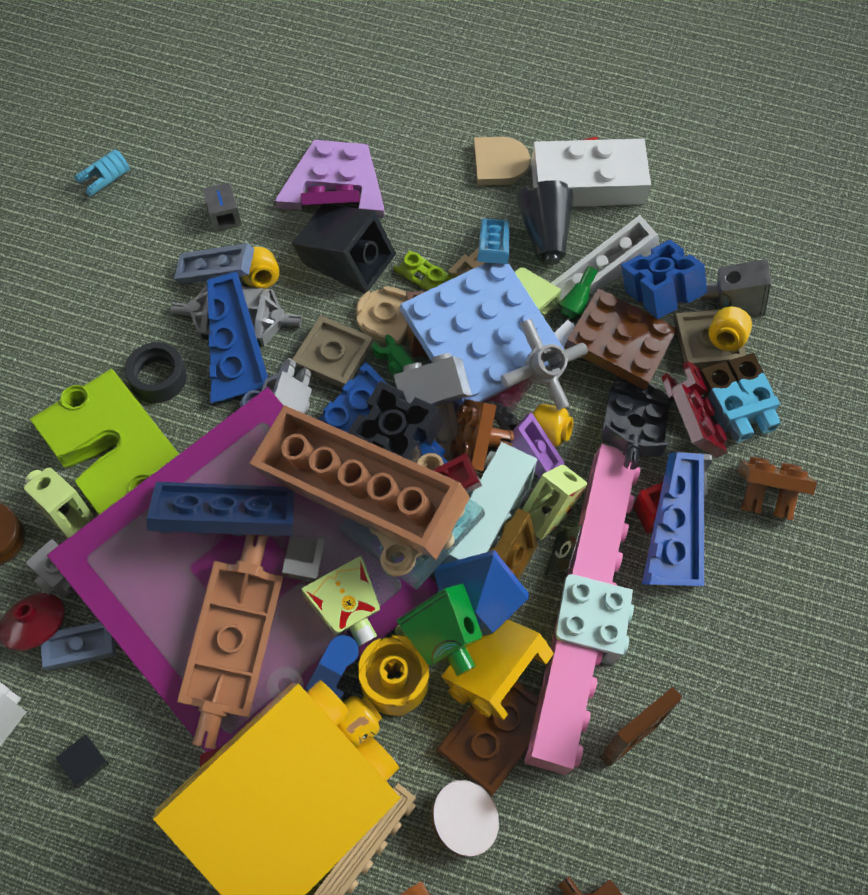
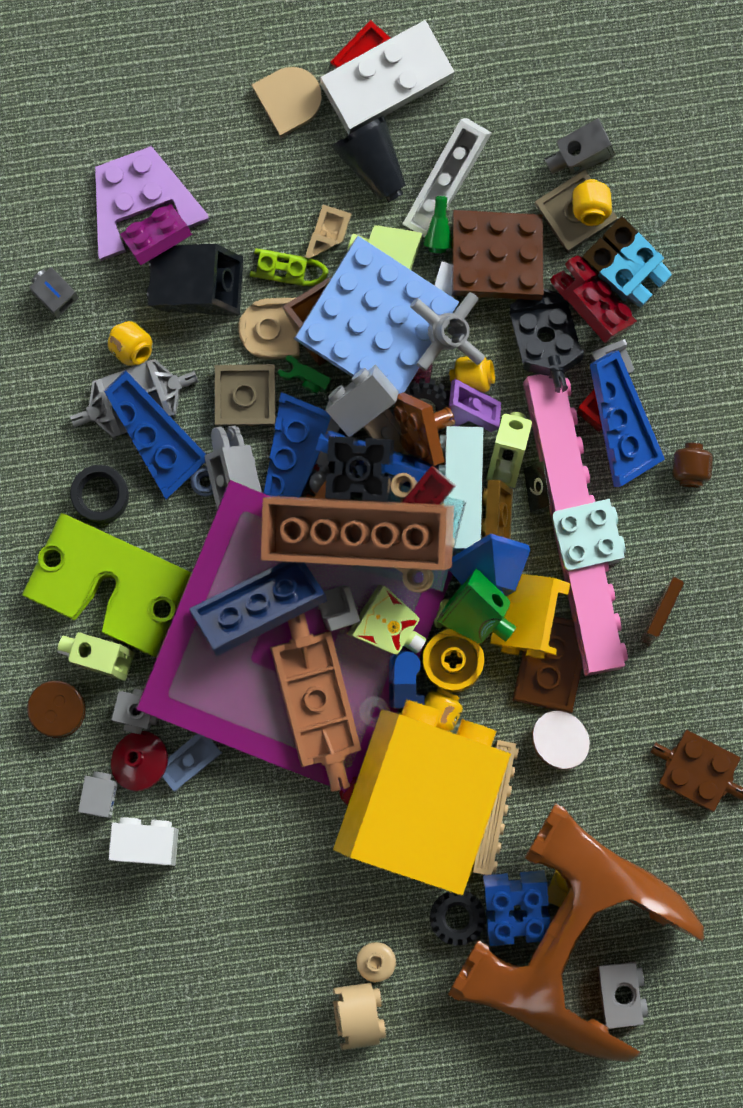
camera: 20 degrees left, 20 degrees up
(82, 761) = (247, 842): black tile -> none
(214, 262) = (90, 364): sand blue plate -> none
(494, 241) = (337, 214): dark azure tile -> none
(664, 278) = (510, 175): blue brick -> none
(731, 603) = (692, 465): none -> reddish brown head
(788, 478) = (687, 333): dark orange plate -> none

